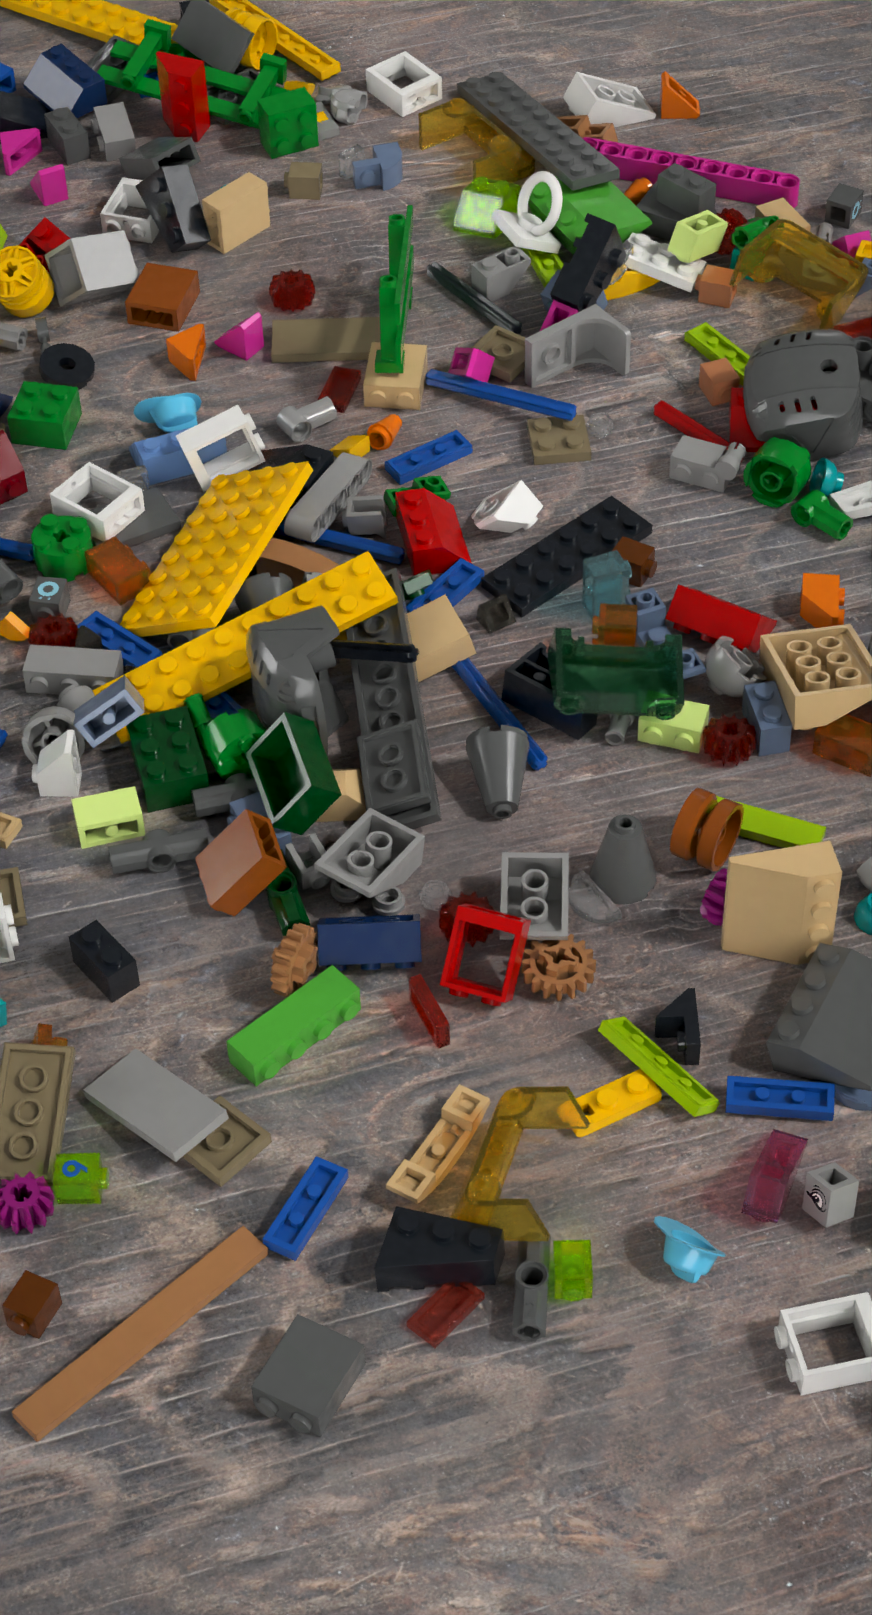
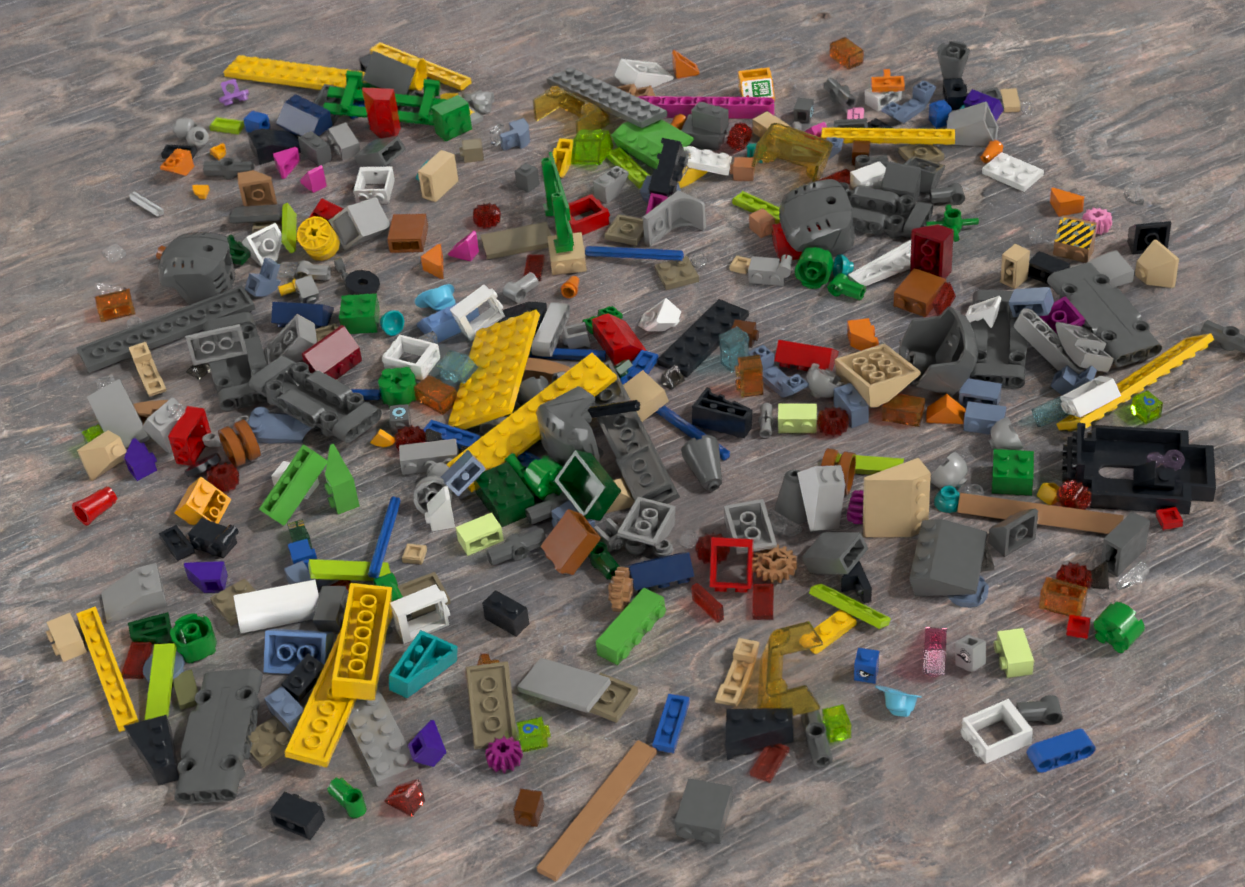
camera: 10 degrees left, 5 degrees down
(90, 439) = (392, 322): none -> teal piece
(160, 532) = (456, 367): none -> clear light blue brick
(175, 207) = (400, 179): black wedge -> none
(355, 445) = (555, 297): yellow slope -> none
(372, 239) = (527, 177): none -> dark grey brick
(403, 101) = (527, 86): white window -> none
(428, 457) = (601, 297): blue tile -> none
(436, 218) = (562, 155): none -> yellow slope
(444, 332) = (591, 222): none -> red window
(471, 364) = (610, 238): dark pink slope -> none
(473, 298) = (611, 206): black axle -> none
(521, 1027) = (763, 602): none -> clear red tile
(527, 229) = (621, 155): white tile -> none
(616, 677) = (760, 397): clear green windscreen -> none
(652, 1177) = (866, 665): none -> blue brick
(659, 970) = (835, 553): none -> dark grey brick
(662, 444) = (740, 264): none -> tan tile
(665, 870) = (822, 496): none -> light grey slope
(686, 424) = (749, 250): red axle -> none
(697, 236) = (725, 142): yellowish green brick -> none
(747, 232) = (756, 133): green piece -> none
(780, 1098) = (924, 609): blue plate -> none
(781, 148) = (756, 83): none -> slope

